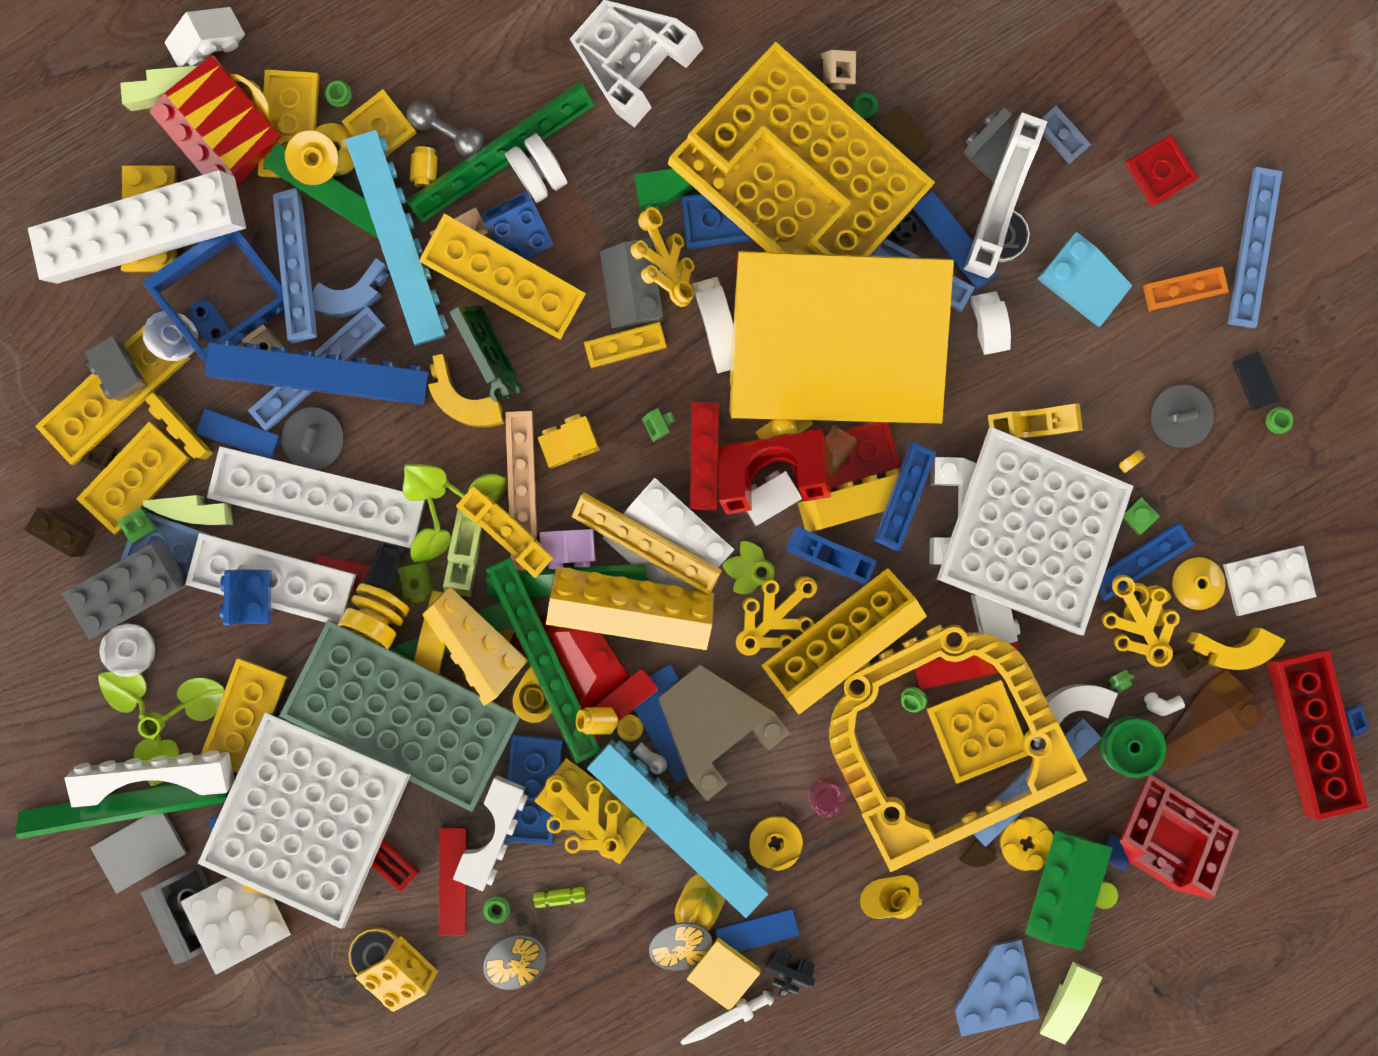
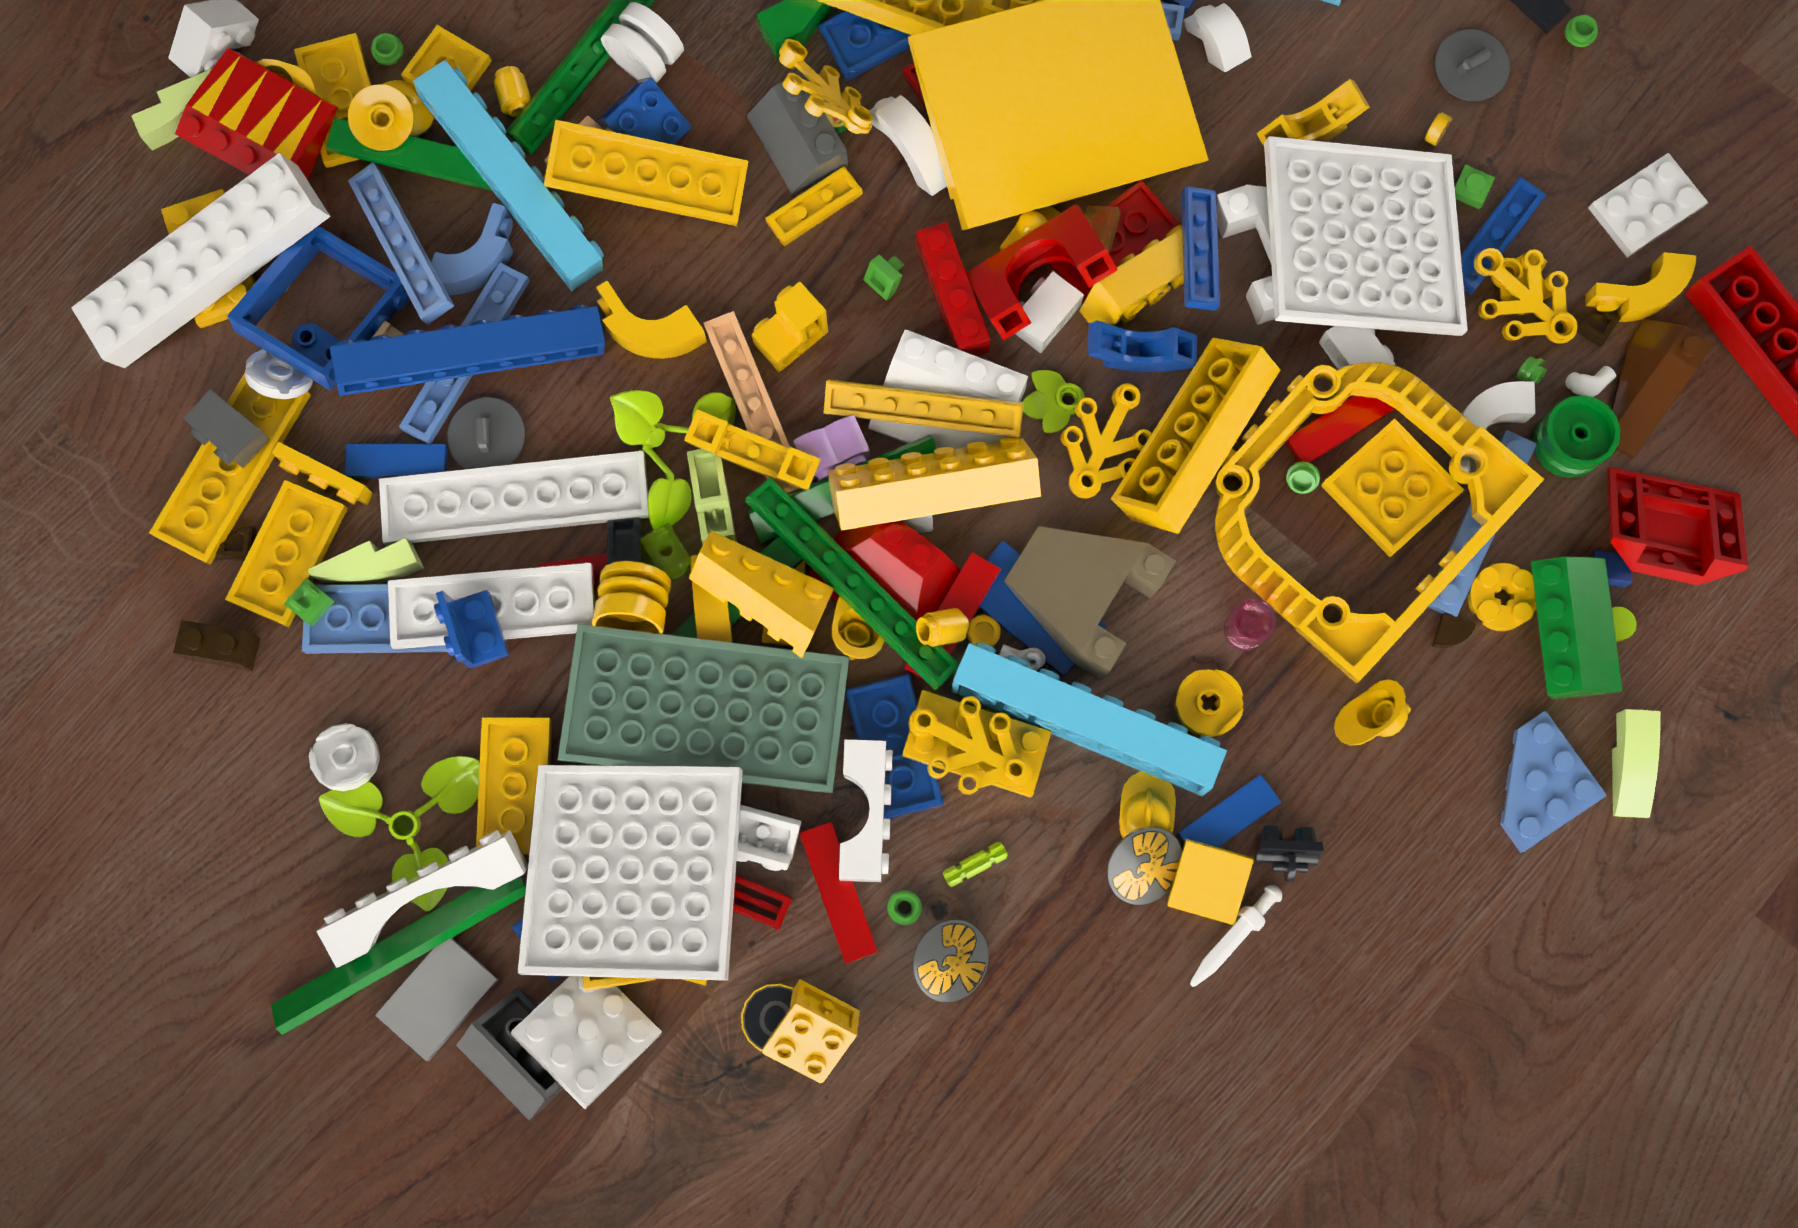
camera: 25 degrees left, 10 degrees down
(125, 588) = (319, 679): dark grey brick -> none
(413, 824) = (766, 838): none -> white bracket
(423, 116) = (494, 39): flat silver piece -> none
(487, 351) = (658, 260): dark green tile -> none
(1186, 583) = (1565, 249): yellow dish -> none

